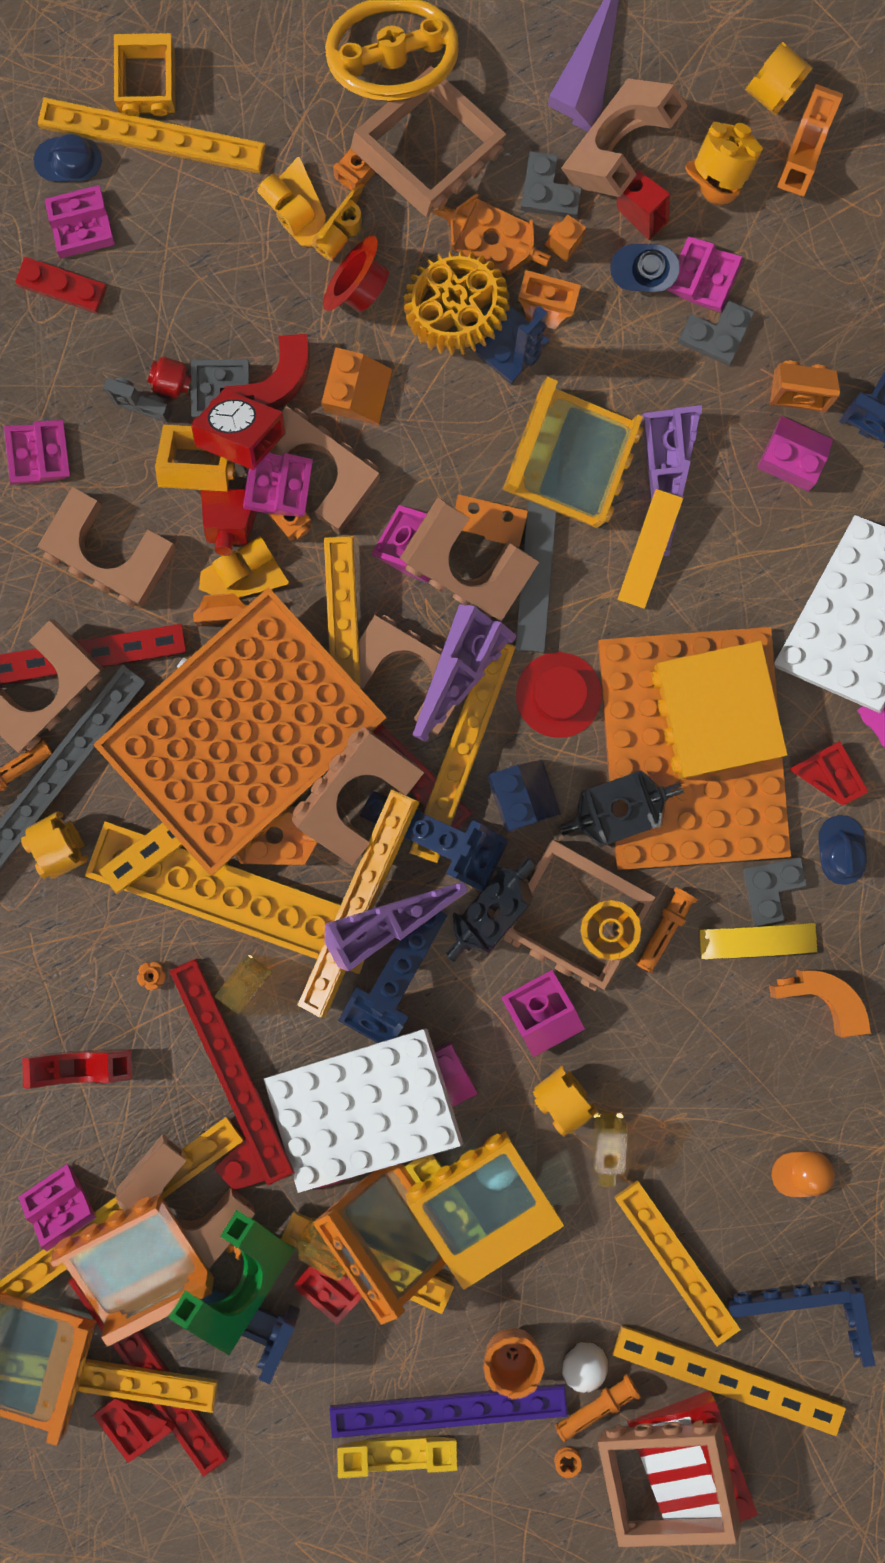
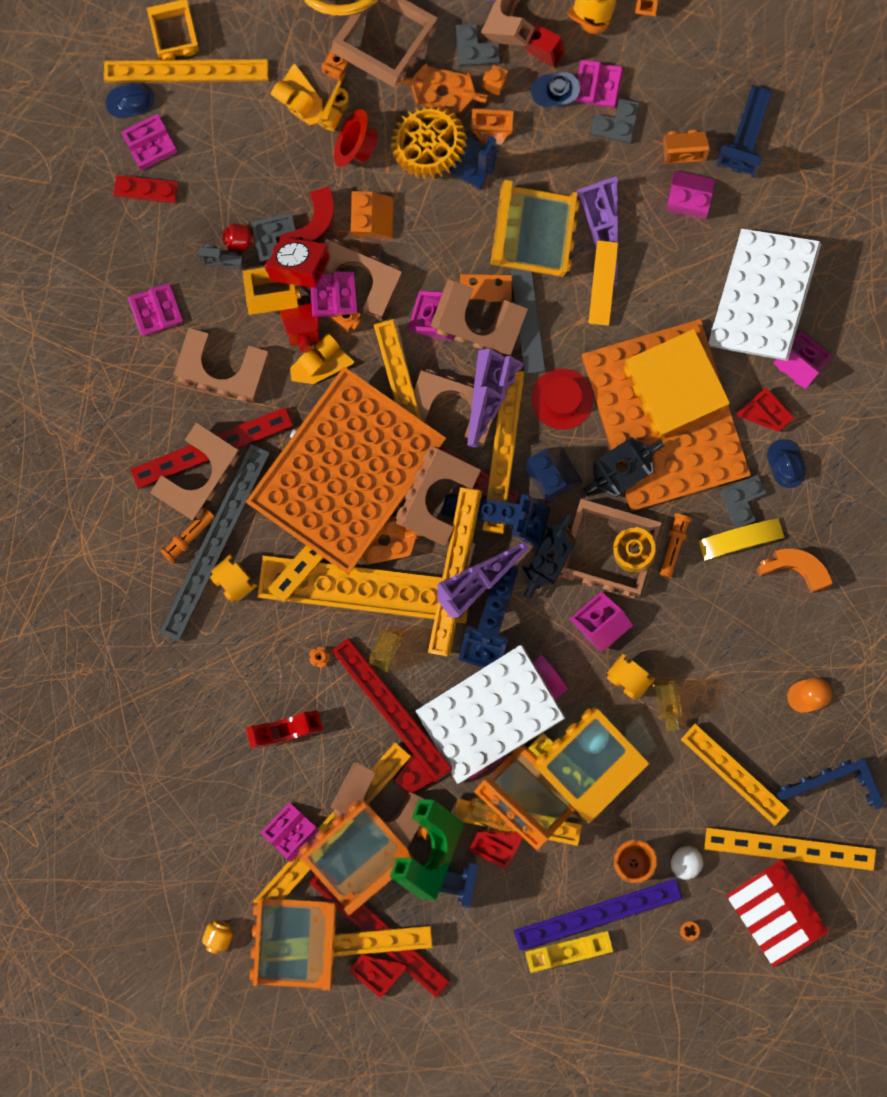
camera: 10 degrees left, 5 degrees down
(218, 609) = (310, 390): orange slope -> none
(609, 1402) = (709, 881): orange pin -> none
(675, 1531) = (810, 938): nougat window -> none

